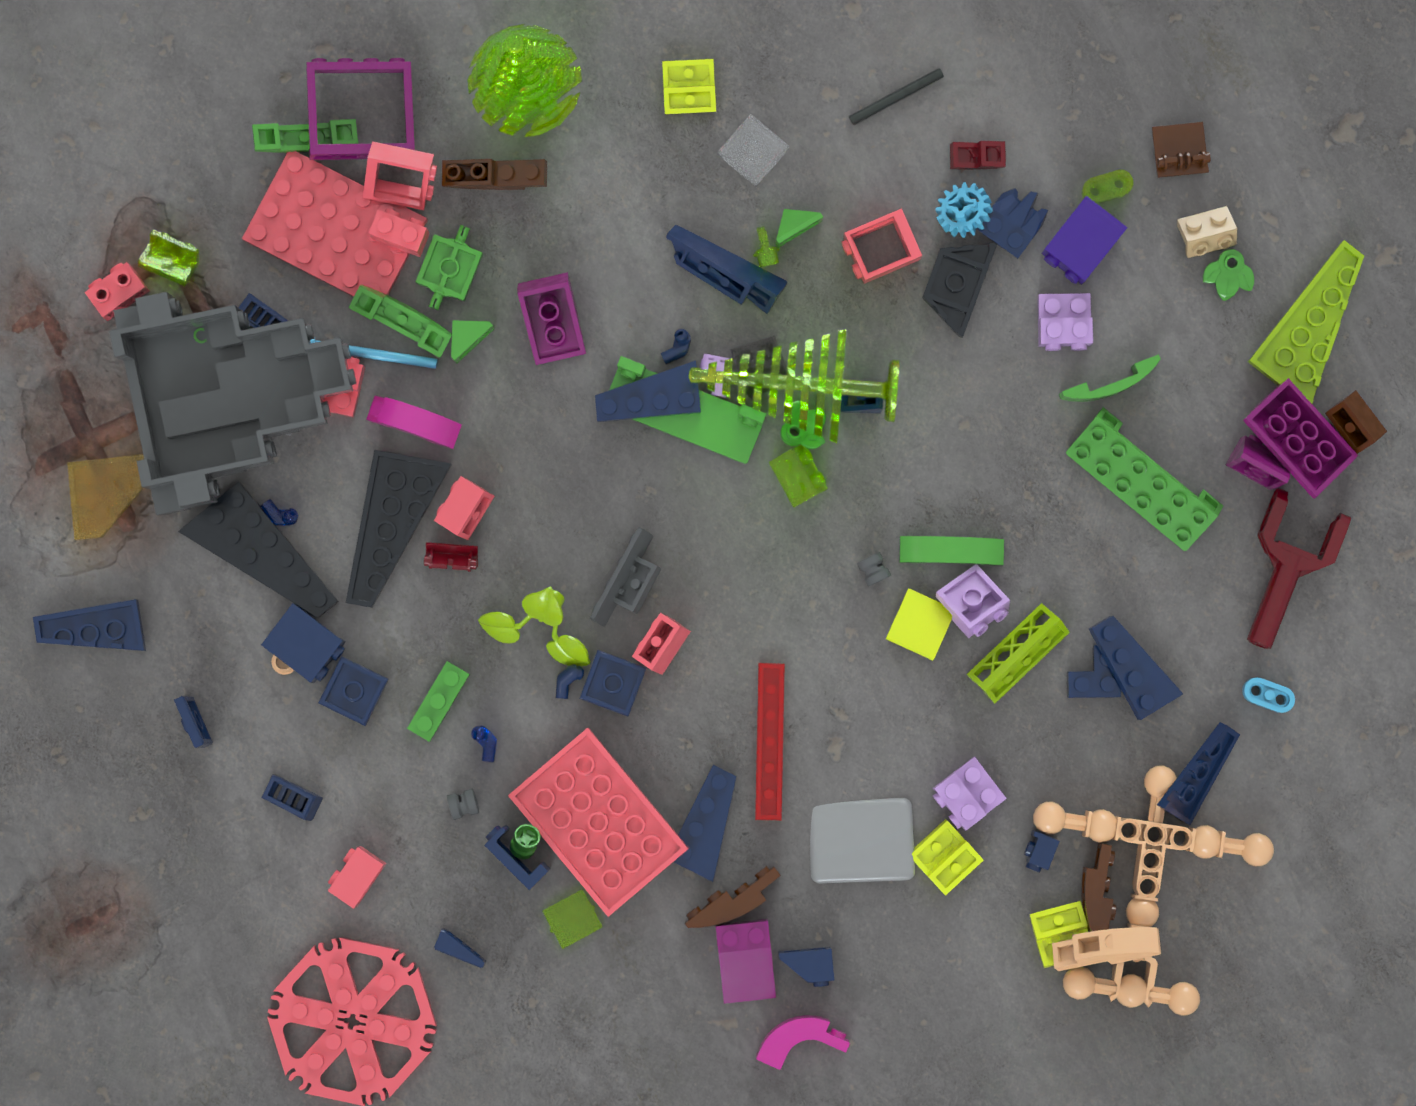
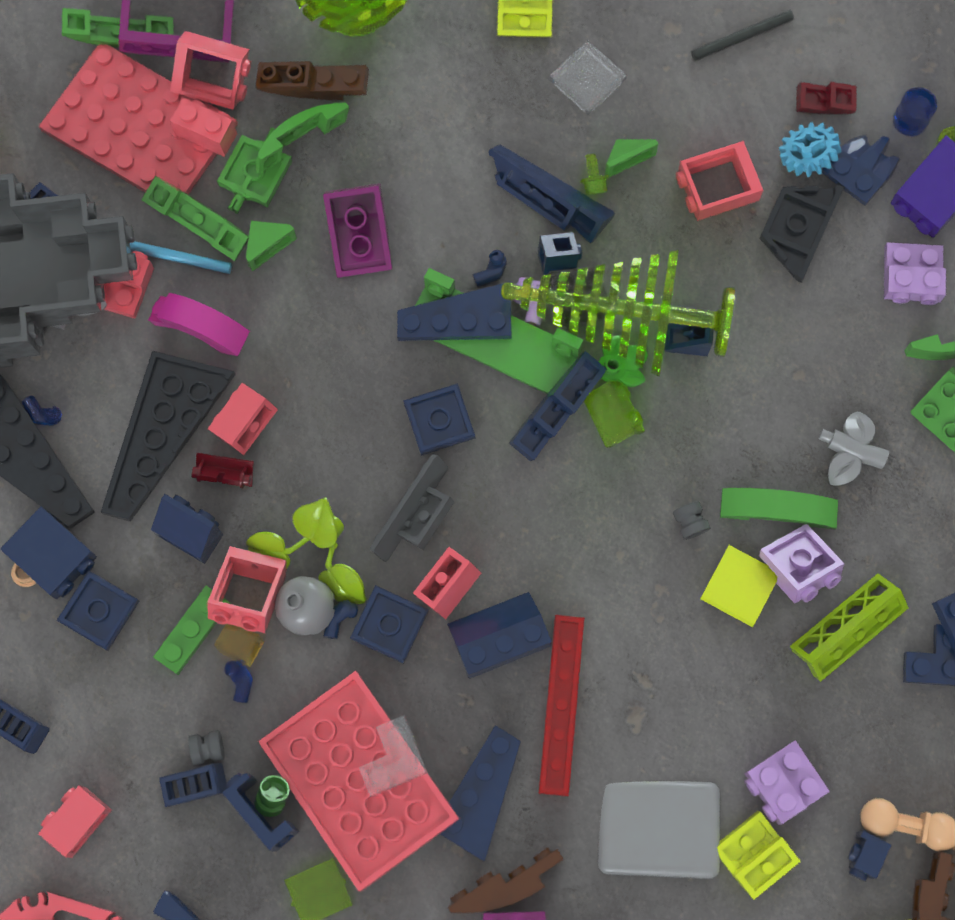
camera: 10 degrees right, 10 degrees down
(423, 613) = (186, 529): none -> dark blue slope
(475, 829) = (217, 780): none -> dark blue slope
(482, 710) = (239, 644): none -> clear yellow panel
(487, 641) = (242, 563): none -> coral window
(509, 211) = (323, 116): none -> bright green slope
(537, 673) = (304, 605): none -> light grey cylinder
(635, 803) = (402, 758): none -> clear plate
(641, 493) = (439, 419): none -> dark blue plate
(710, 684) = (499, 635): none -> dark blue slope
(742, 320) = (558, 252): none -> dark blue brick
(747, 473) = (557, 406): none -> dark blue slope
(1014, 491) = (852, 449): none -> light grey plant
(1059, 165) = (915, 111): none -> clear blue wheel

